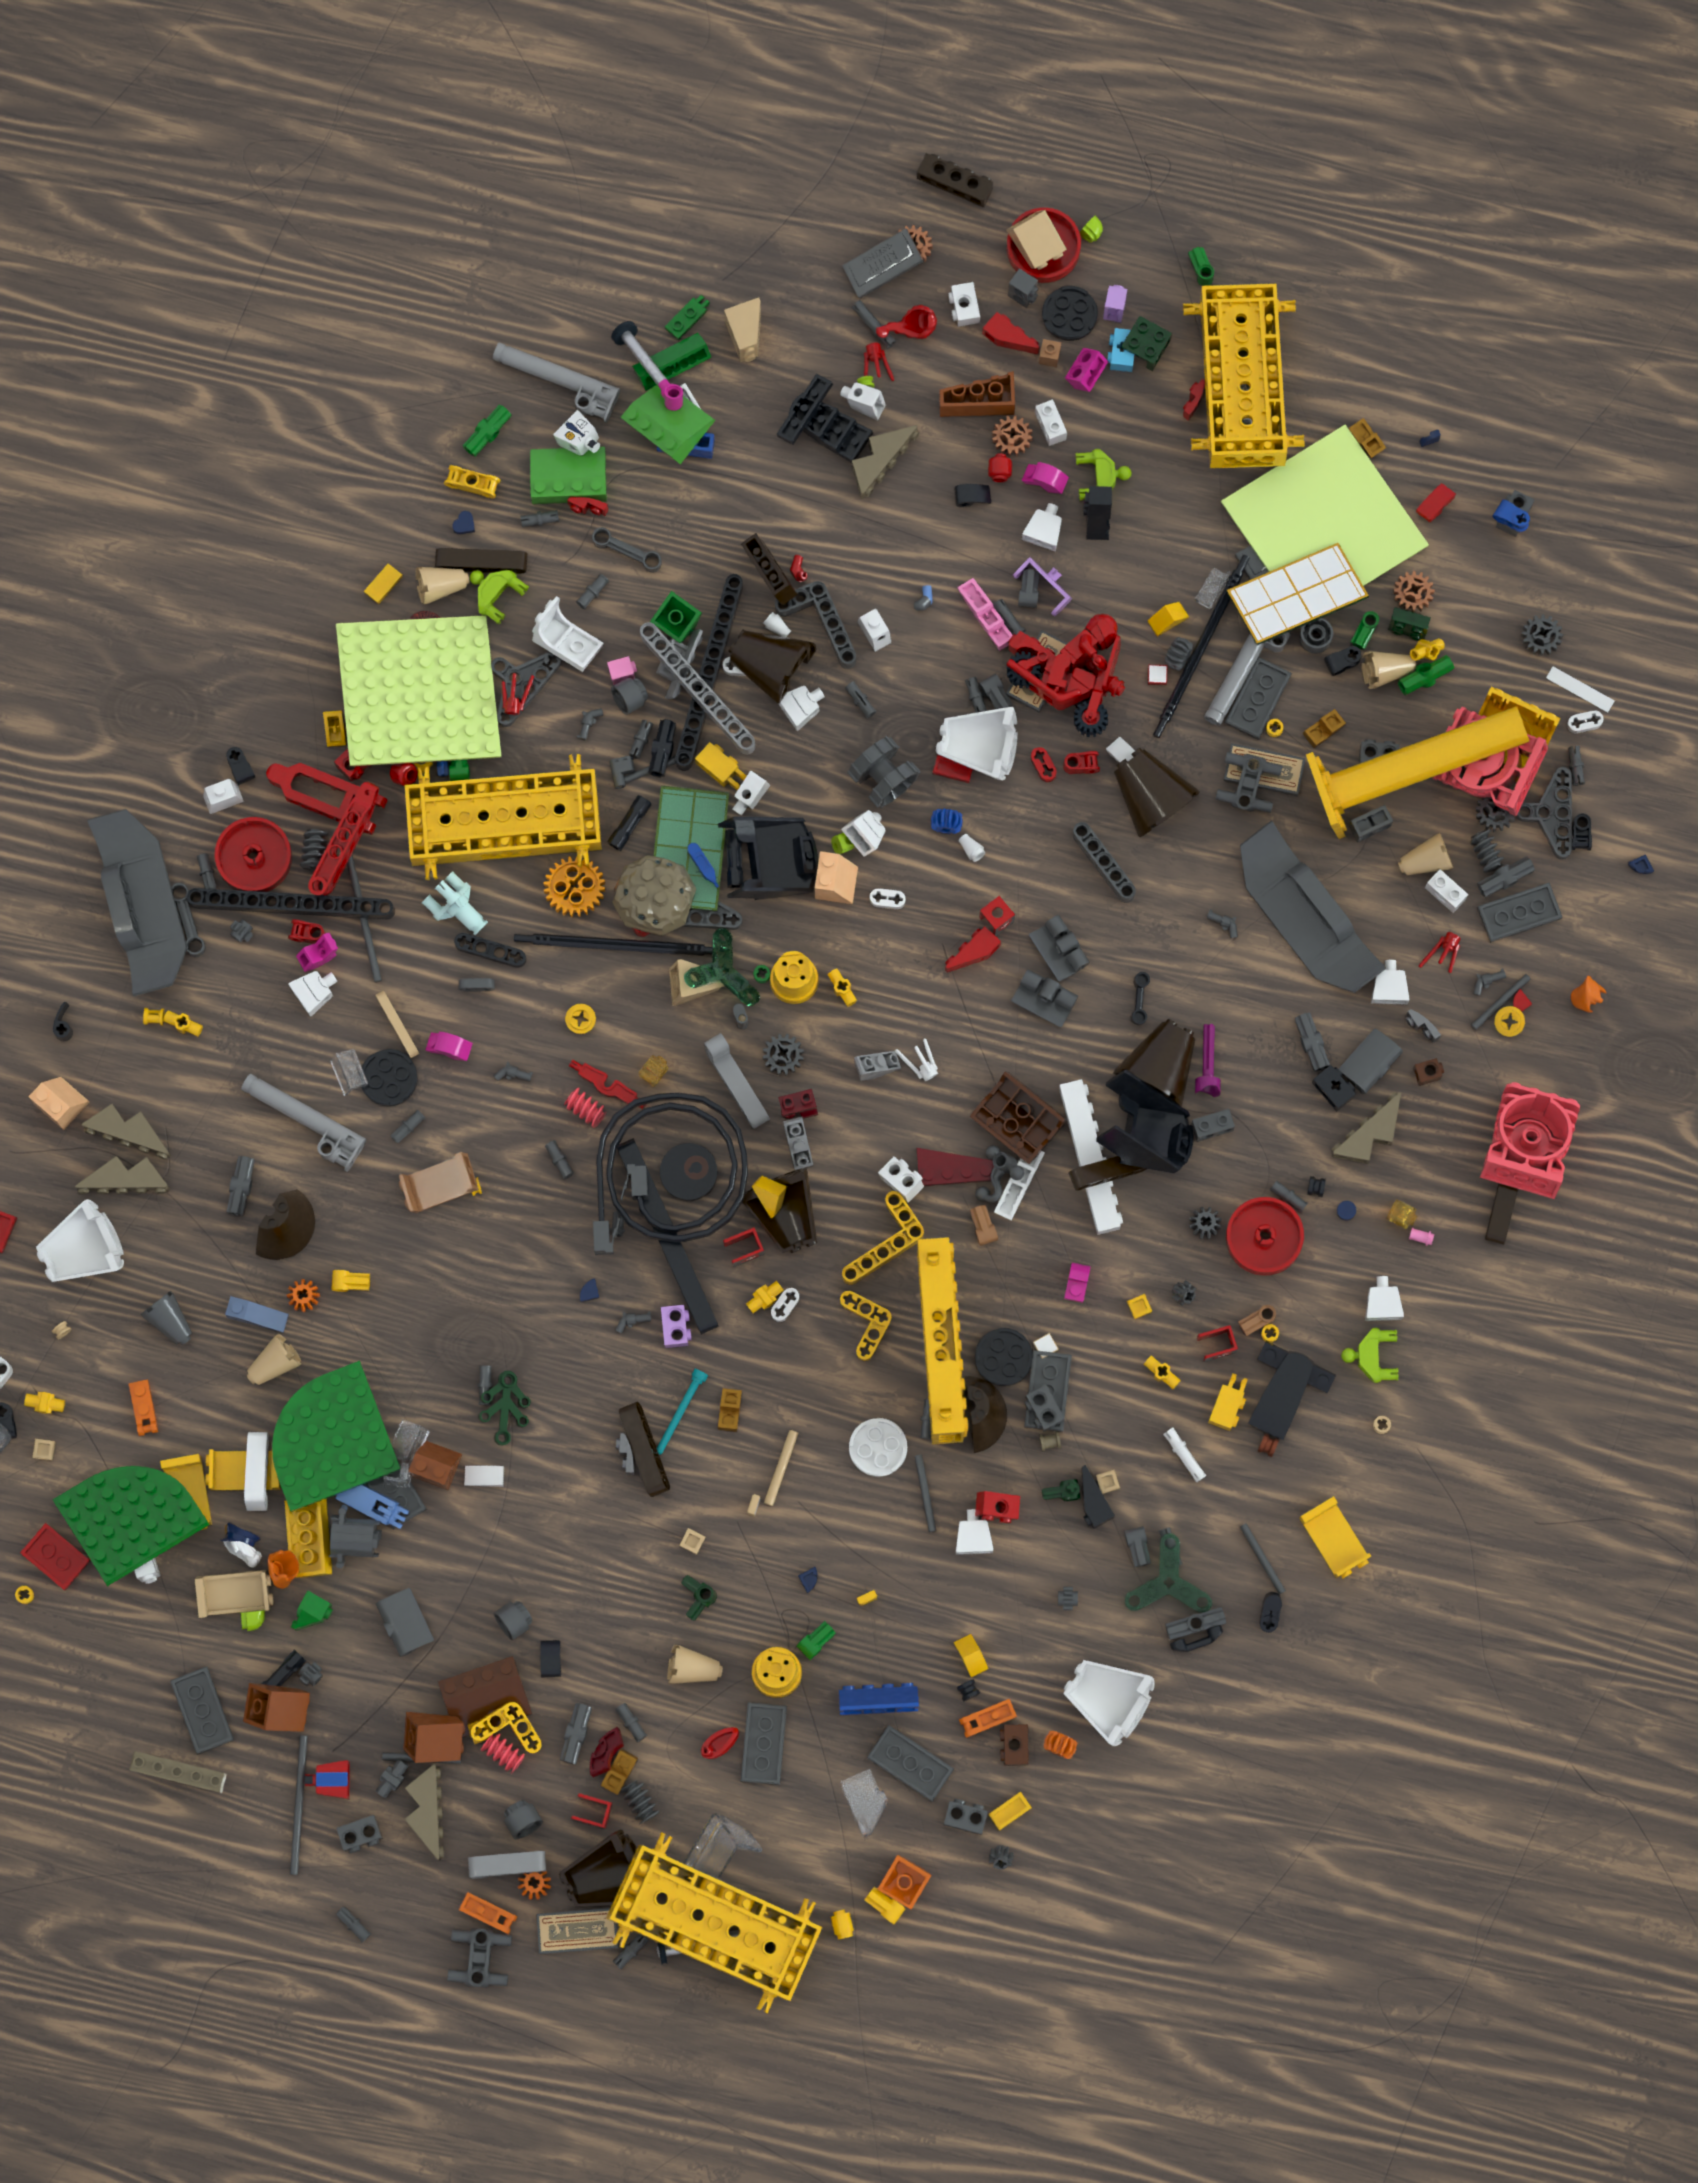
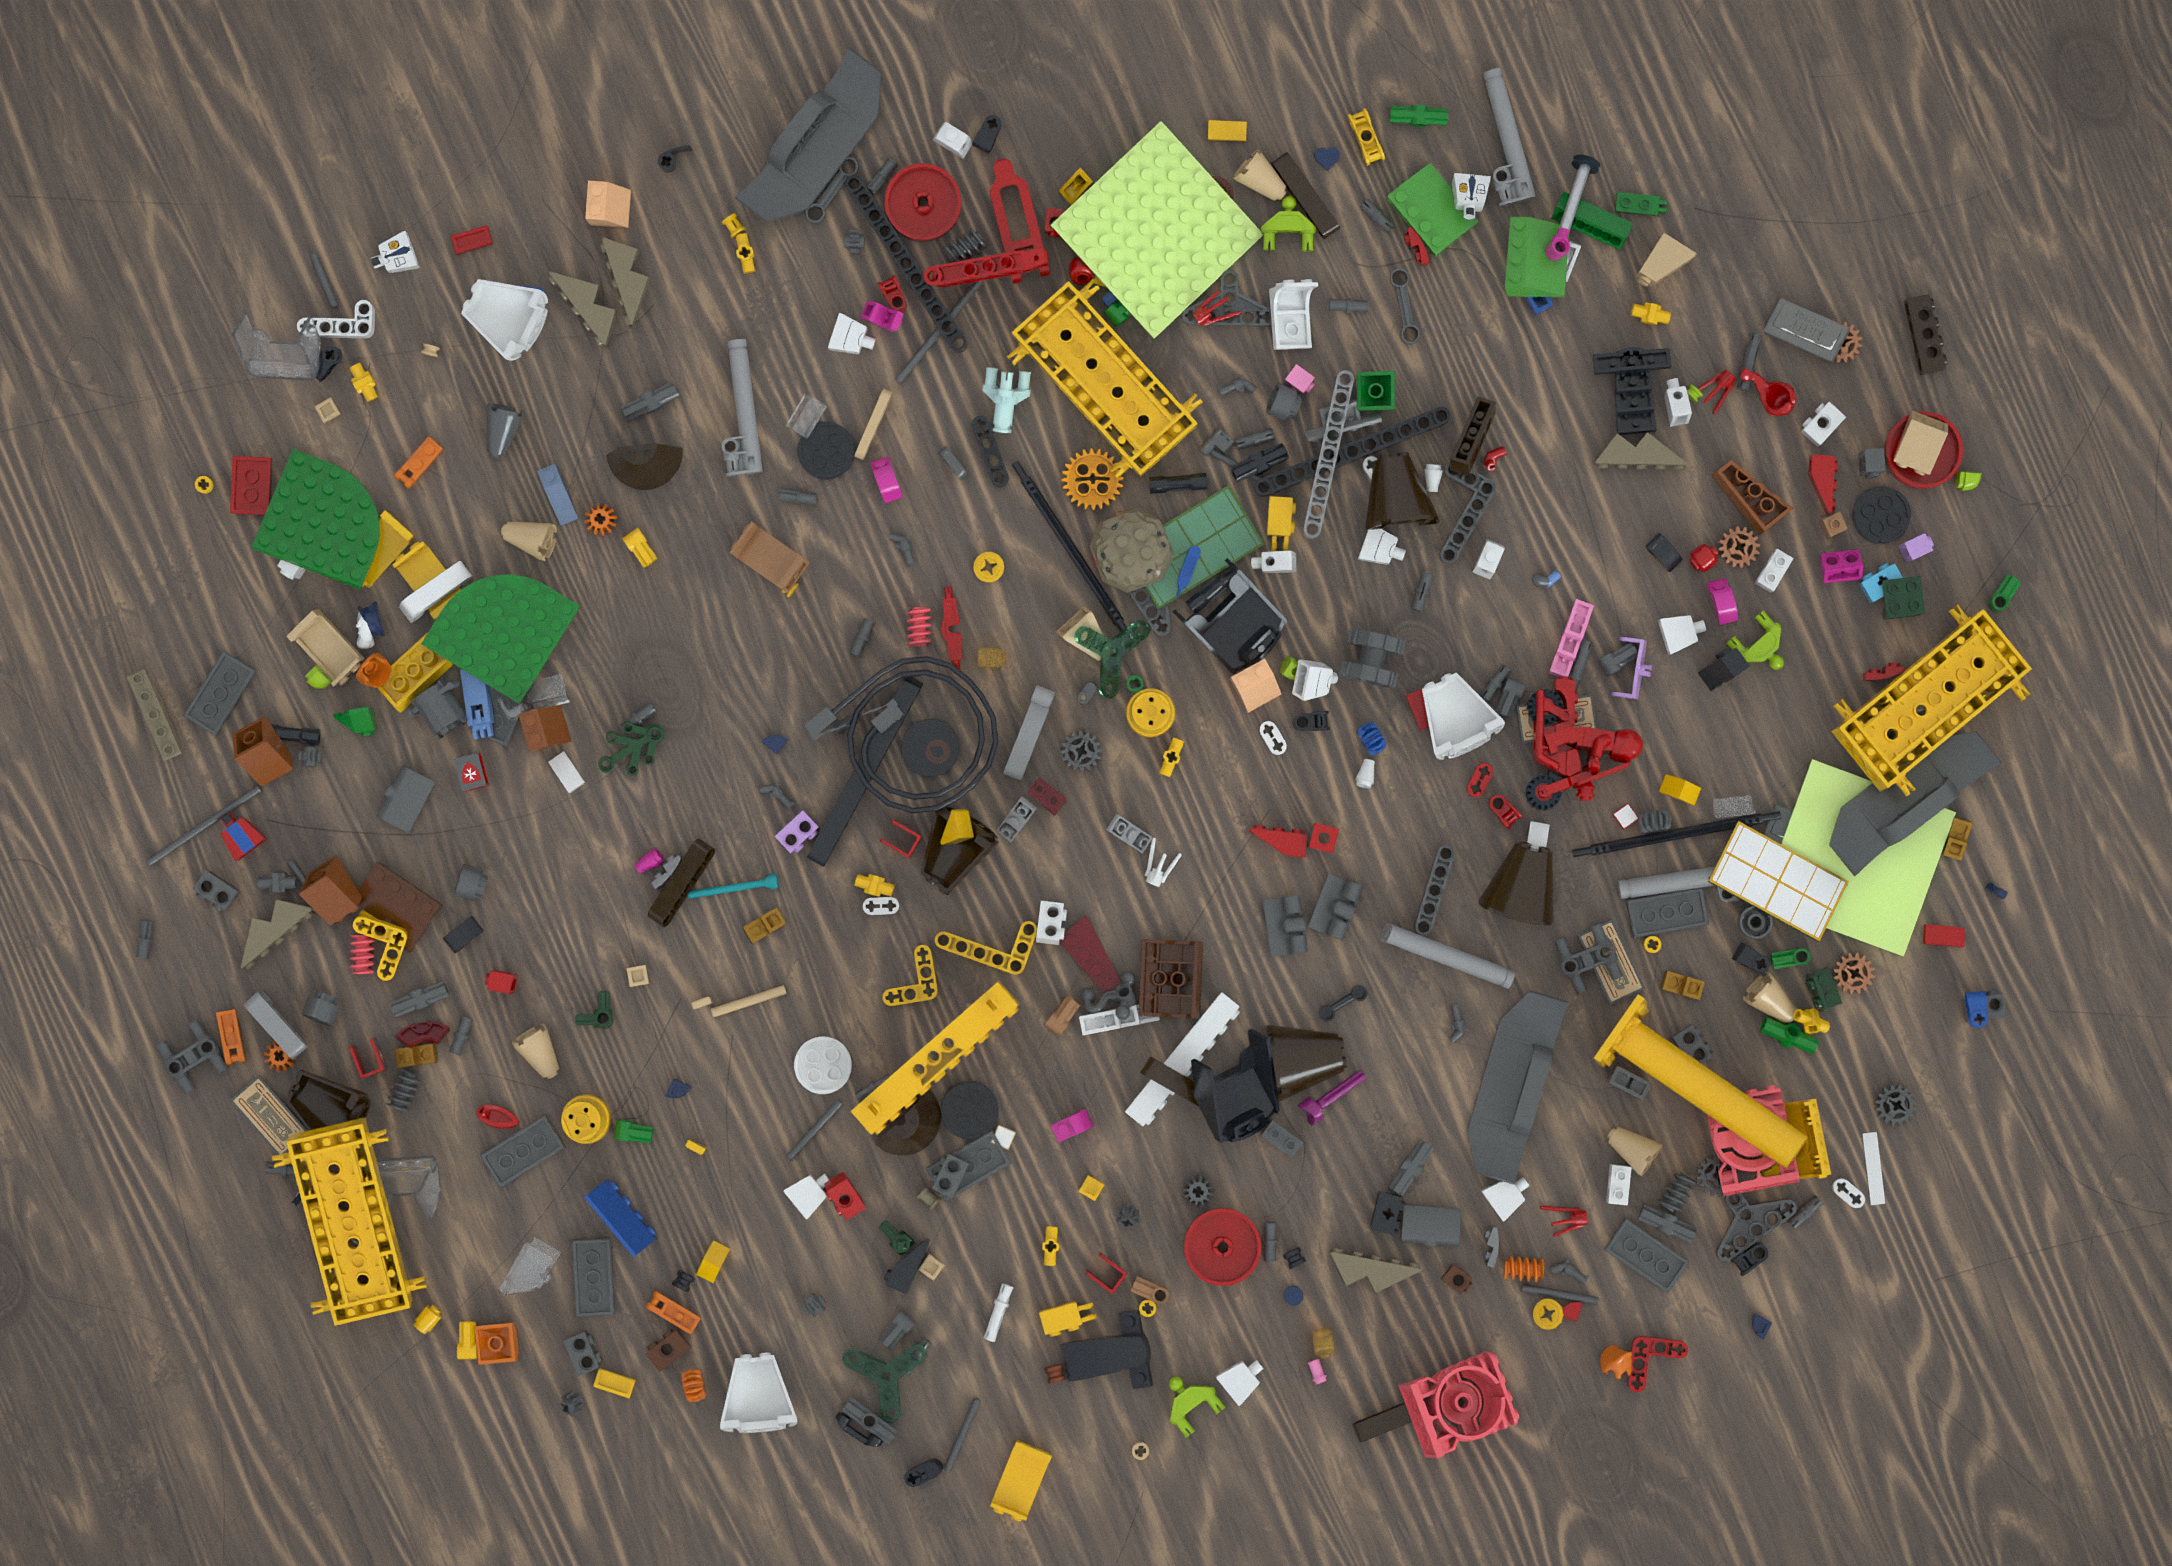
camera: 55 degrees right, 10 degrees up
(424, 1551) = (471, 772): none -> piece
(607, 1461) = (650, 860): none -> dark pink cone
(612, 1653) = (501, 981): none -> red brick
(778, 370) = (1650, 313): none -> yellow axle
(900, 857) = (1313, 721): none -> black piece
(1136, 905) = (1447, 955): none -> light grey piece
(1309, 476) = (1887, 816): none -> dark grey piece
(1458, 1013) = (1523, 1268): none -> orange piece
(1598, 964) = (1650, 1350): none -> red beam

